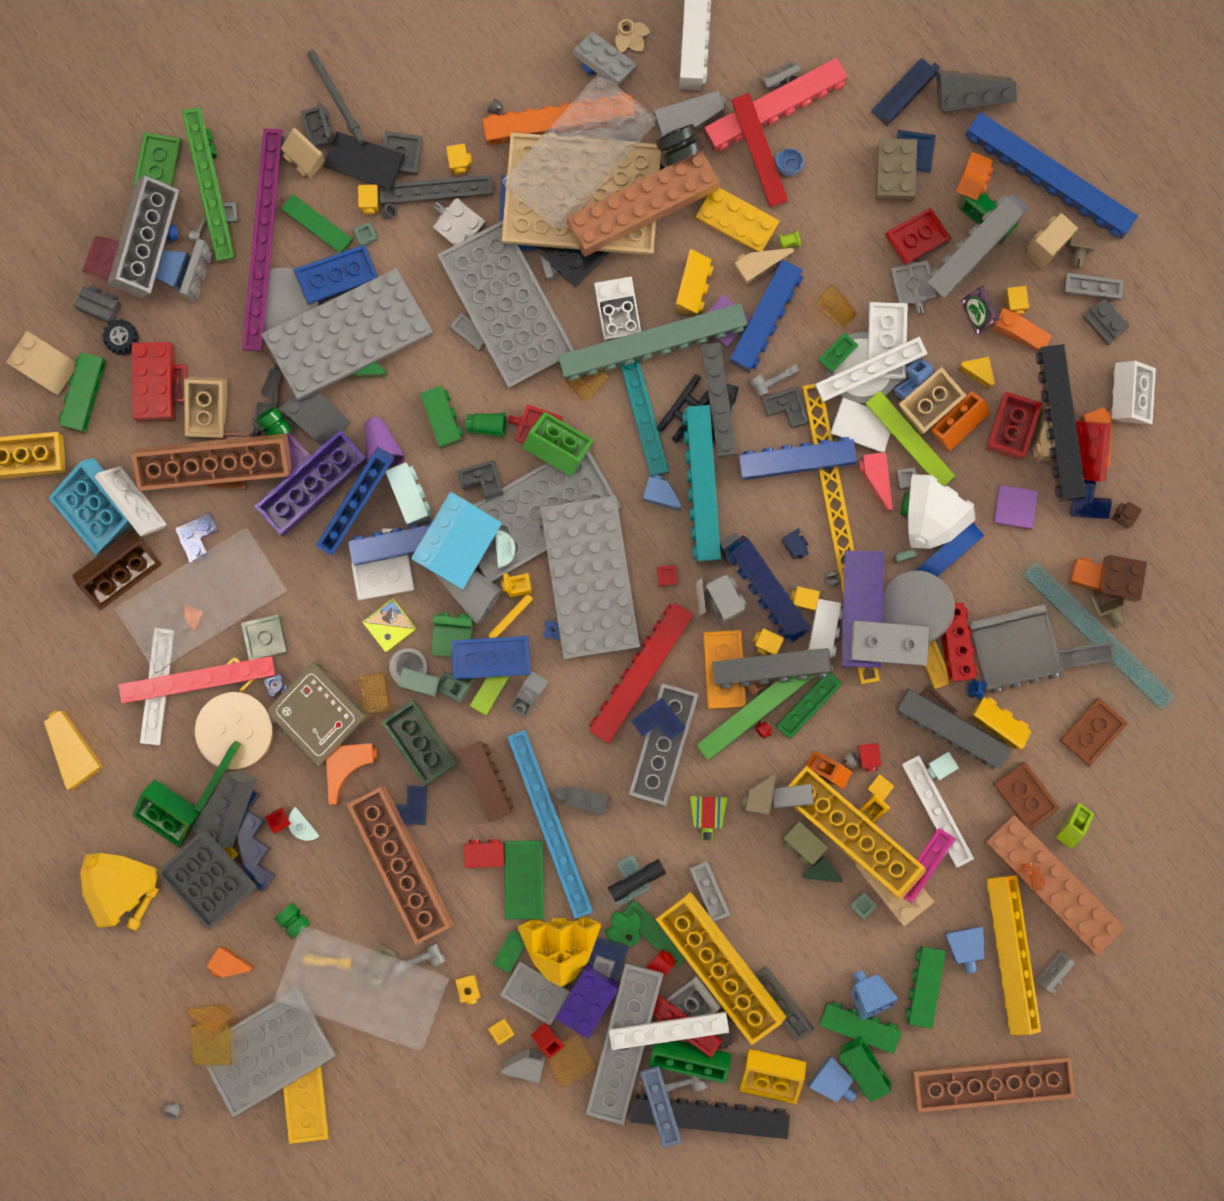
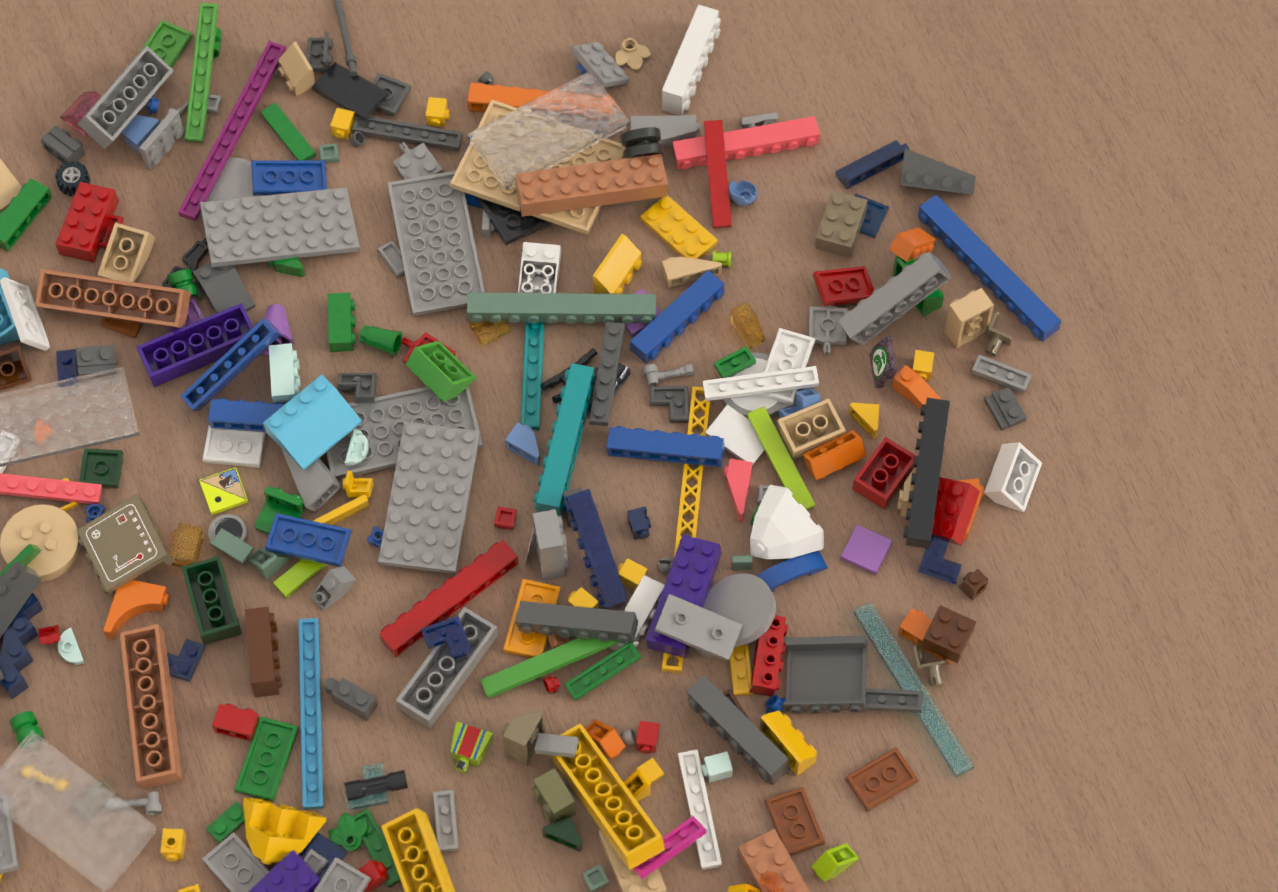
camera: 15 degrees right, 20 degrees down
(217, 528) = (95, 359): none -> dark grey plate

